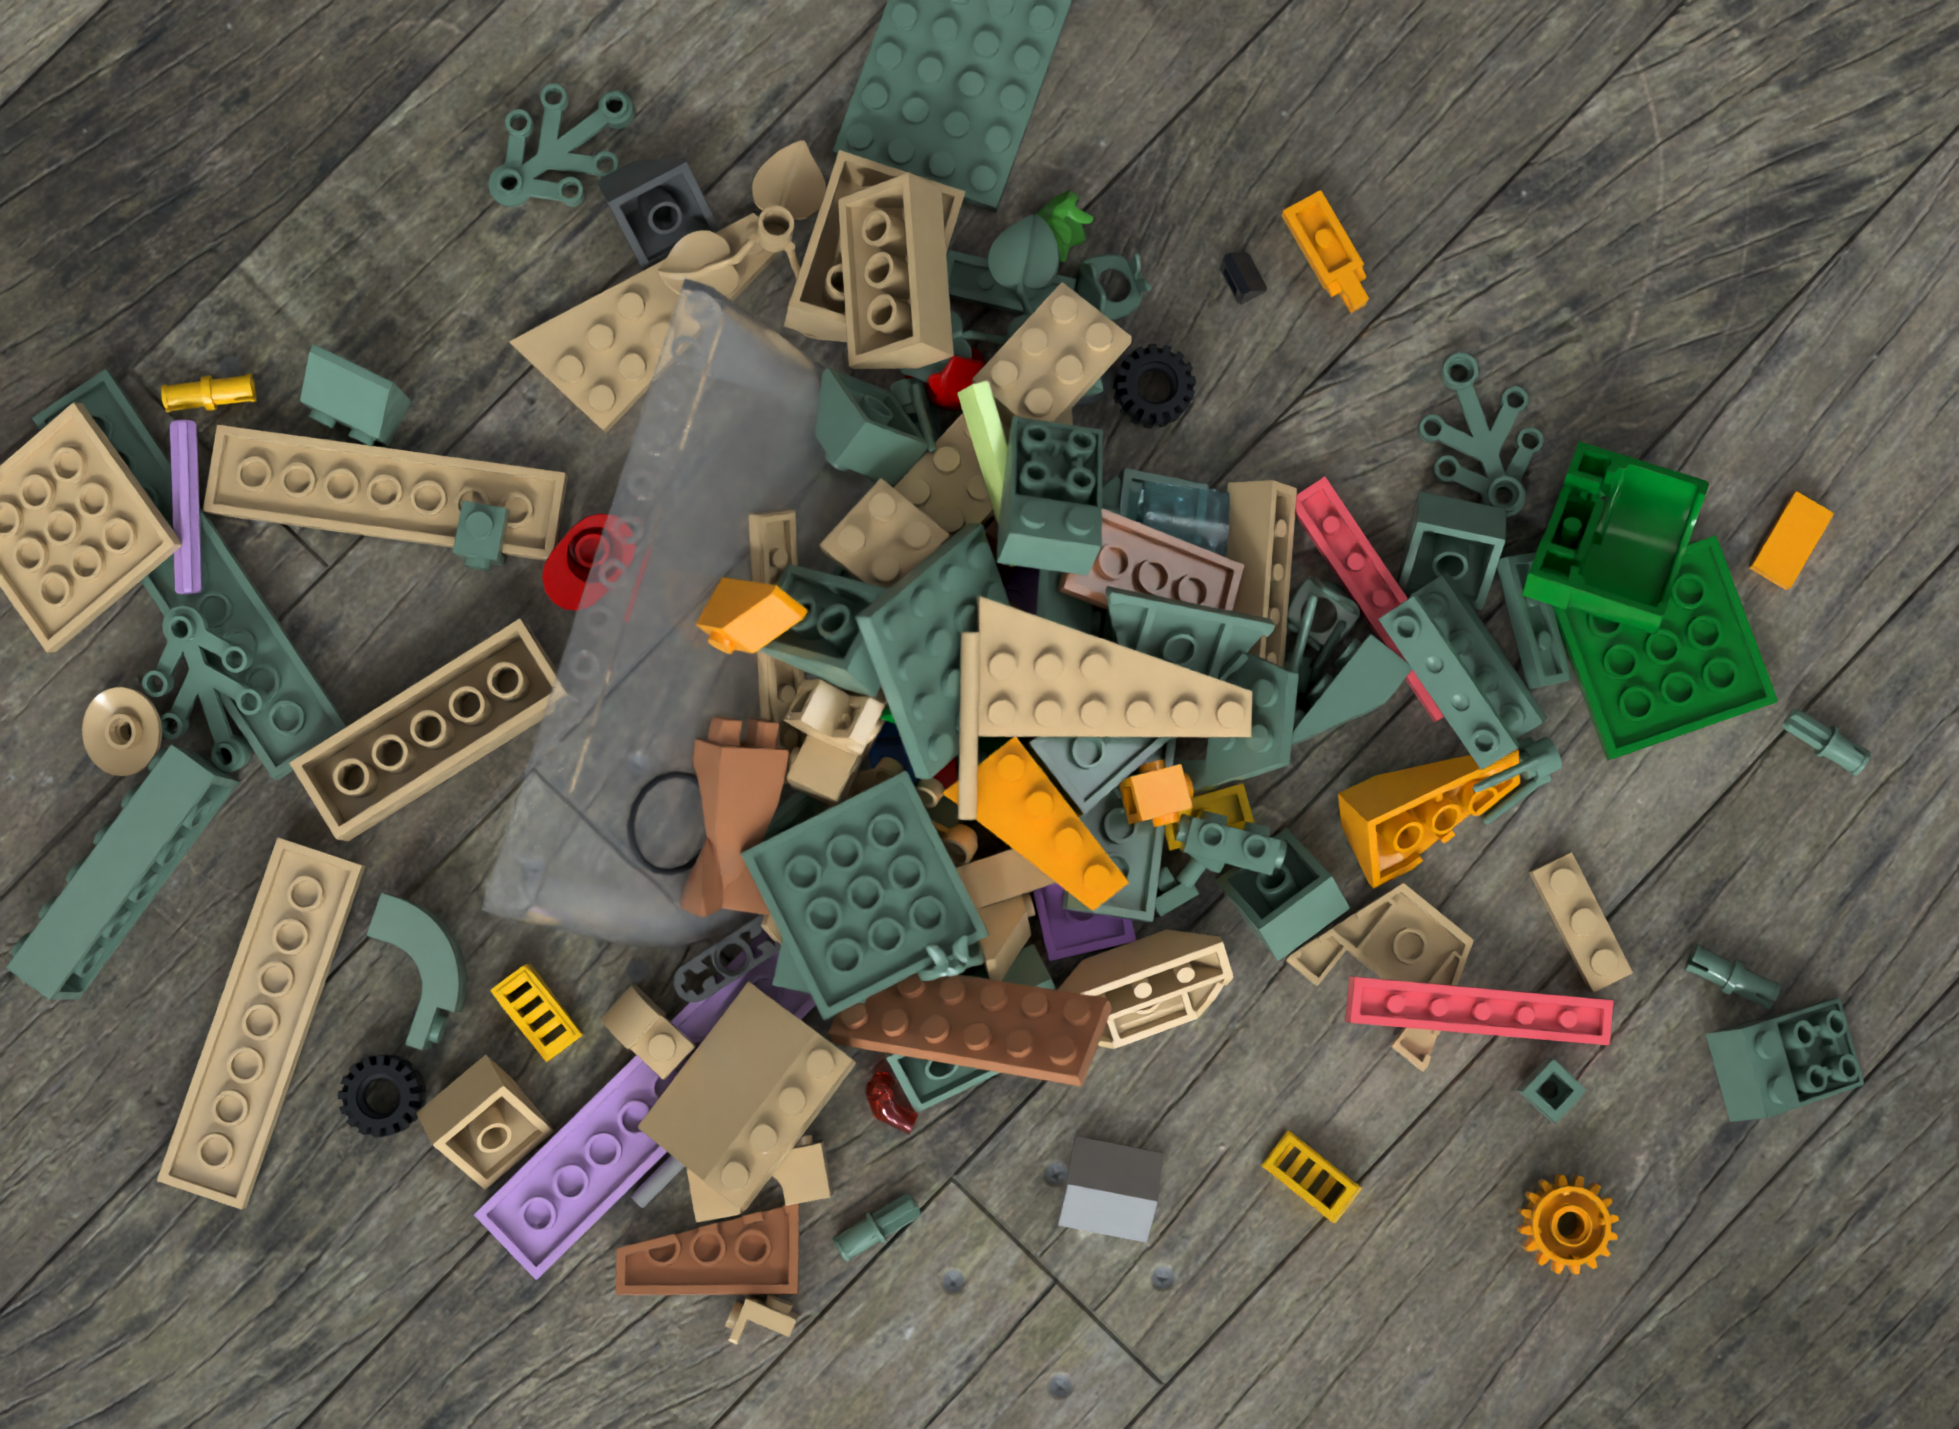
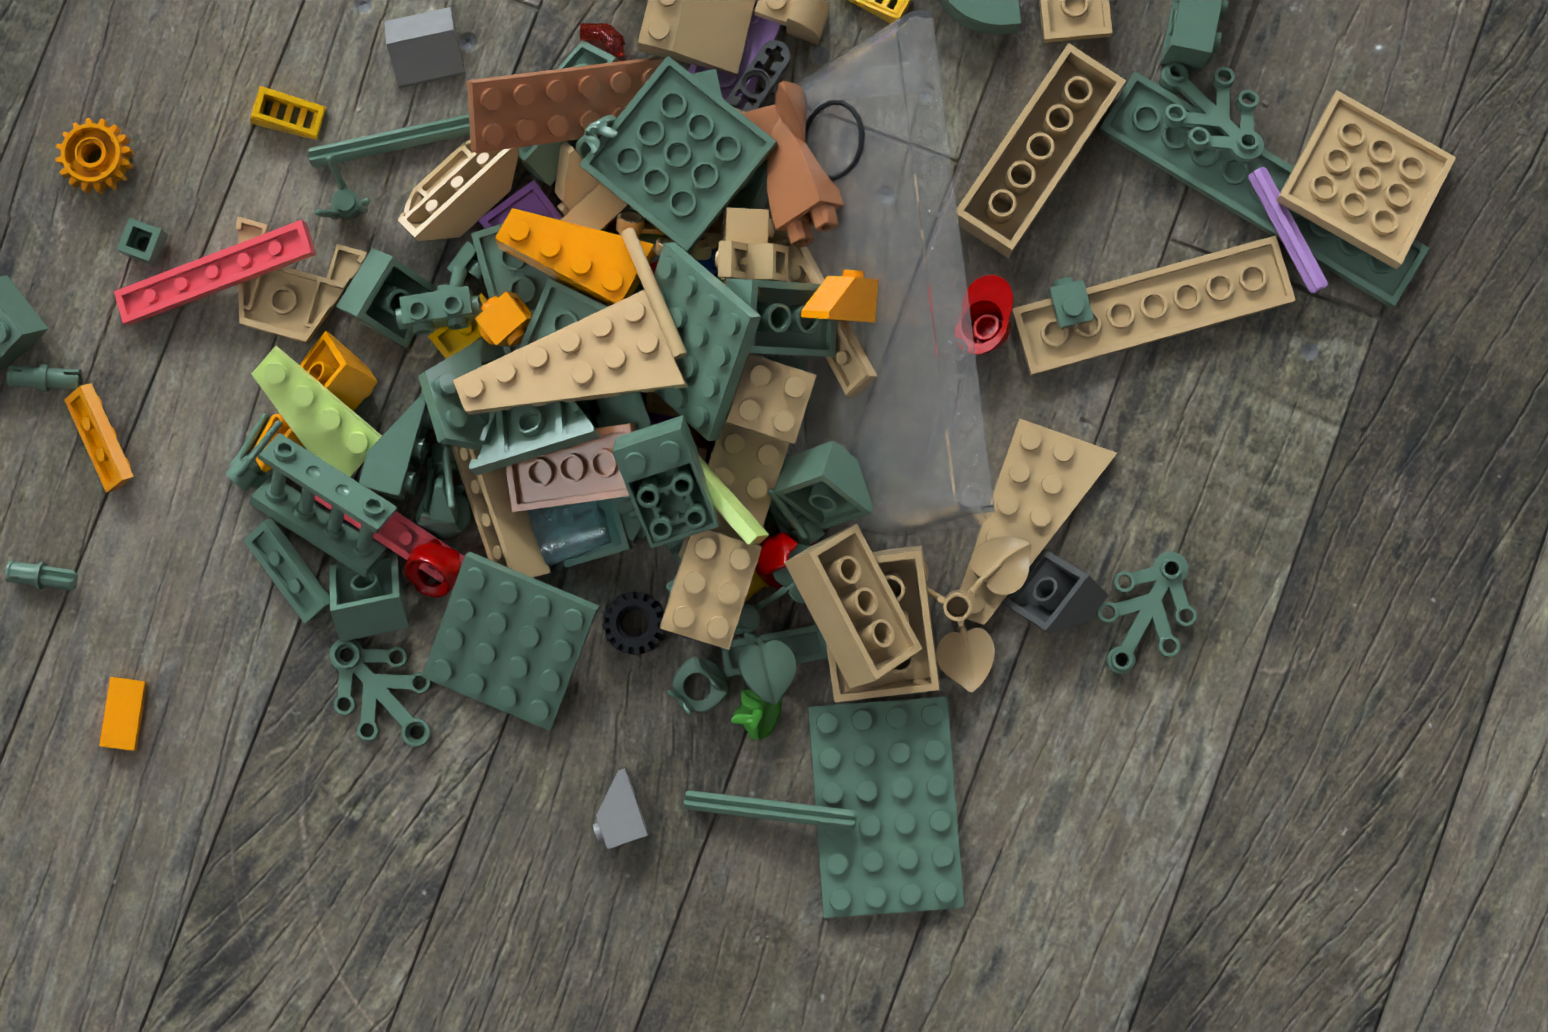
camera: 150 degrees right, 0 degrees up
(107, 733) = (1261, 49): tan dish -> none
(208, 393) = (1313, 322): yellow pin -> none
(352, 397) = (1207, 360): sand green slope -> none
(1091, 108) = (770, 809): none -> sand green axle
(1199, 1087) = (390, 140): none -> sand green axle
(1242, 277) = (604, 735): black slope -> none
(1264, 177) = (620, 814): none -> light grey slope
(1287, 1033) = (345, 201): none -> sand green plant
(1308, 422) = (509, 640): none -> sand green plate
(1325, 613) = (439, 506): none -> sand green slope
(1328, 249) = (551, 782): light orange hinge -> none
(1353, 554) = (442, 558): none -> red piece
(1428, 775) = (315, 414): none -> yellowish green wing
(1580, 922) = (168, 371): tan plate -> none
(1630, 557) = (243, 633): green piece -> none
(1675, 681) = (187, 592): green plate -> none
(1695, 874) = (99, 437): none -> light orange plate

